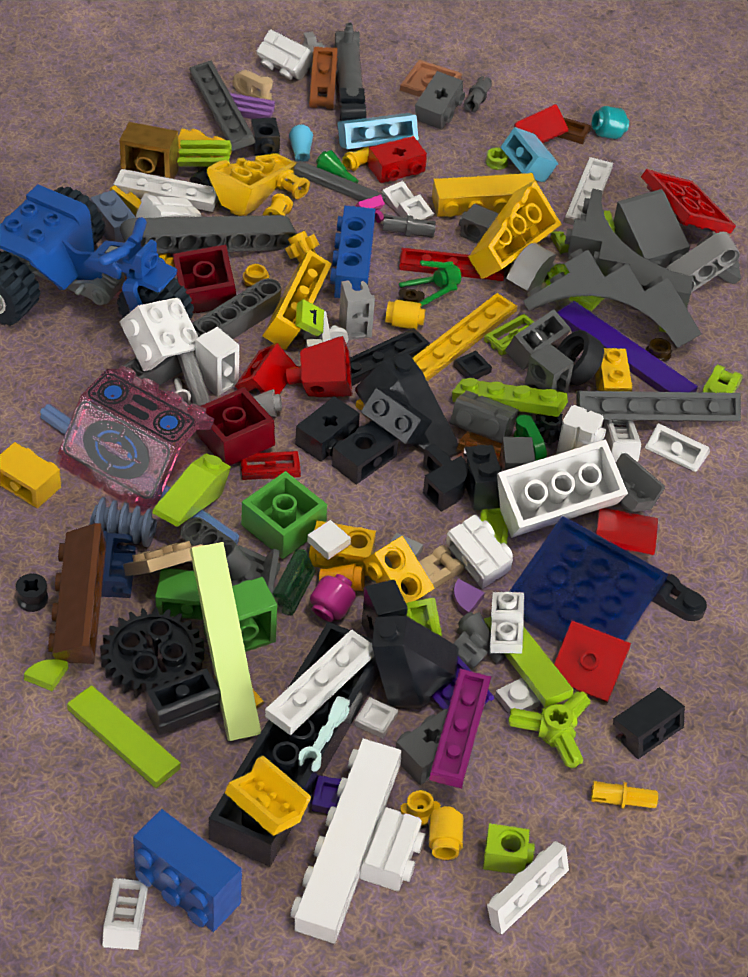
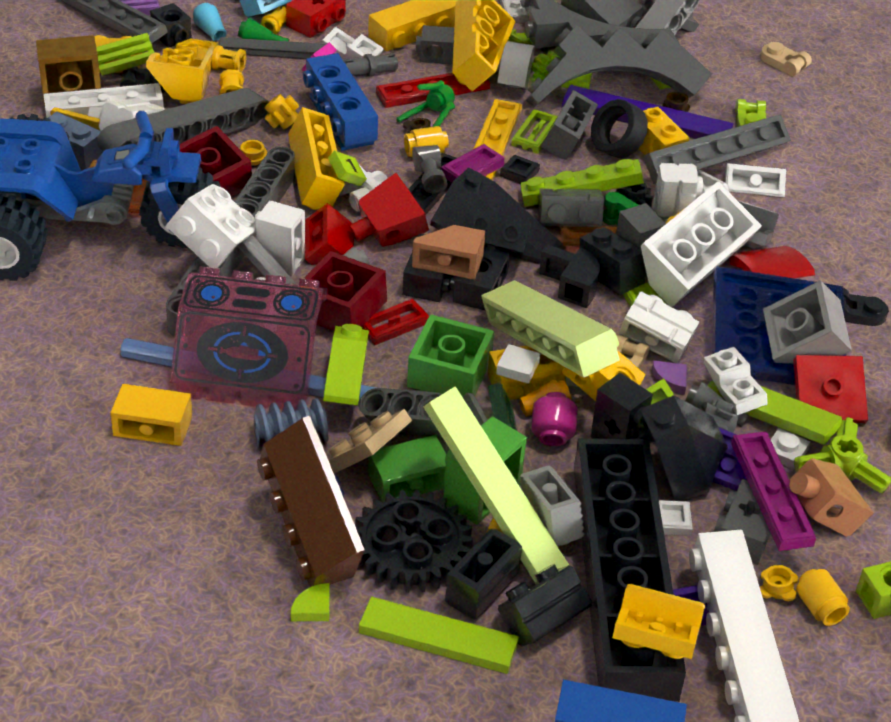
camera: 25 degrees left, 5 degrees down
(32, 592) = (241, 538): black wheel -> none
(213, 745) = (545, 604): none -> black brick
(272, 667) = (554, 504): none -> light grey brick
(320, 682) = (620, 496): white plate -> none
(337, 714) = (658, 522): light aqua piece -> none
(341, 422) = (450, 251): none -> nougat slope
(356, 310) = (383, 147): light grey hinge -> none
(369, 519) = (551, 328): none -> yellowish green brick
(390, 333) = (429, 160): none -> dark grey leg
(391, 849) = (793, 632): white brick -> none
(430, 348) = (480, 159): none -> magenta tile
(509, 751) = (822, 486): none -> nougat torso
(549, 370) = (605, 143): dark grey brick -> none
(601, 598) = (807, 325): none -> light grey slope

